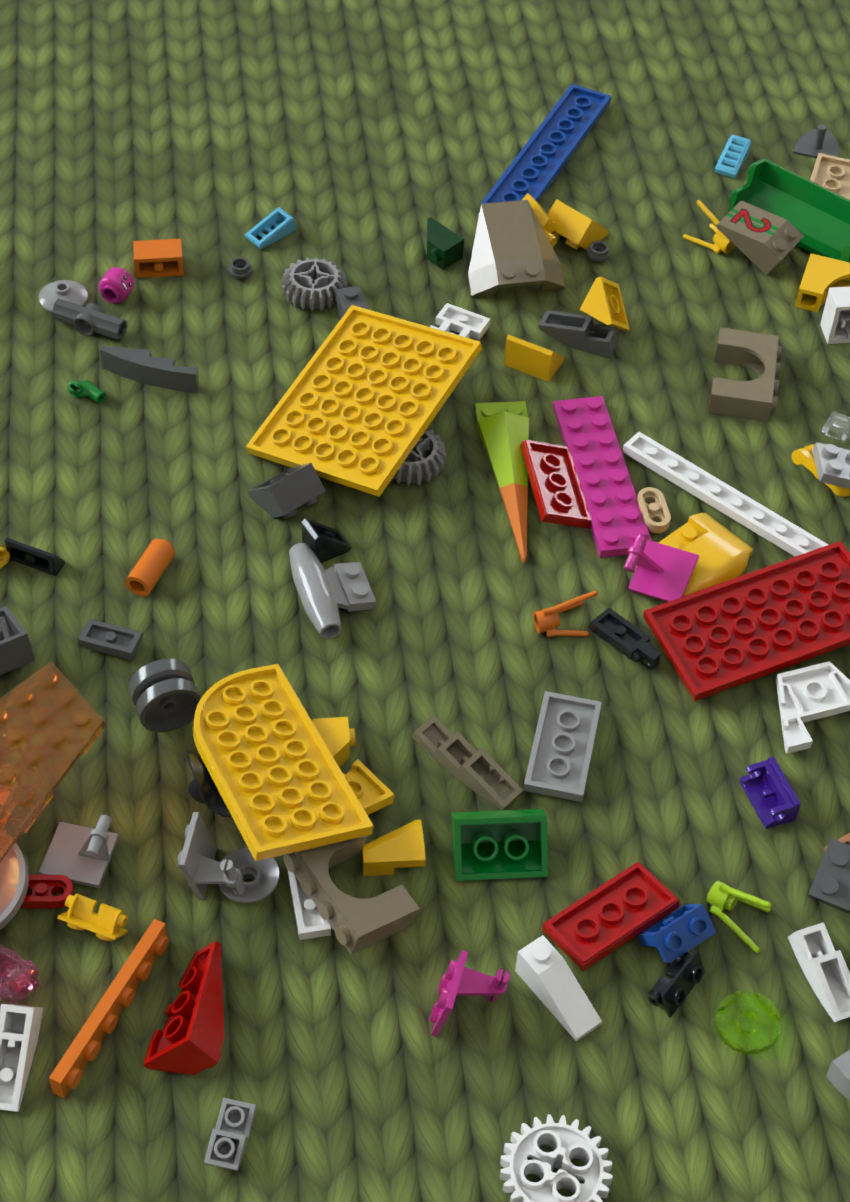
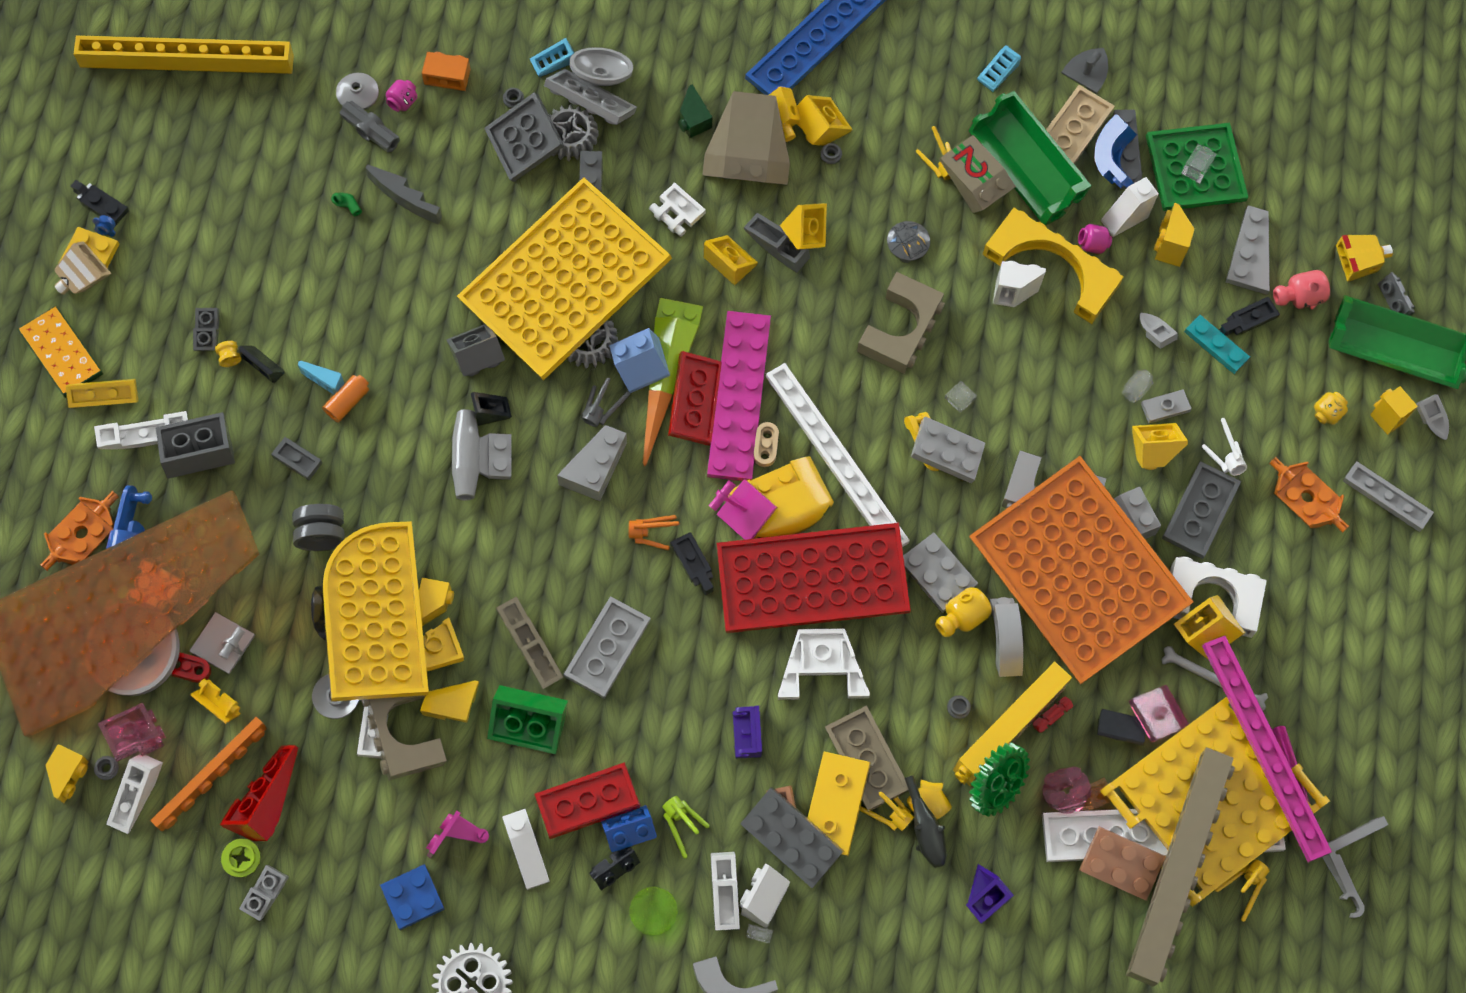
camera: 15 degrees right, 20 degrees up
(117, 552) = (326, 378): none -> medium azure slope
(173, 1091) = (235, 849): none -> lime gear
(199, 862) = (300, 678): light grey plate -> none
(268, 292) = (524, 137): none -> dark grey plate
(317, 248) = (590, 96): none -> light grey plate
(327, 224) = (601, 66): none -> light grey dish
(432, 1088) = (412, 897): none -> blue plate
(447, 523) = (593, 413): none -> dark grey plant
(468, 569) = (594, 464): none -> light grey wedge
(480, 457) = (640, 360): none -> medium blue slope
(714, 308) = (908, 241): none -> dark grey dish

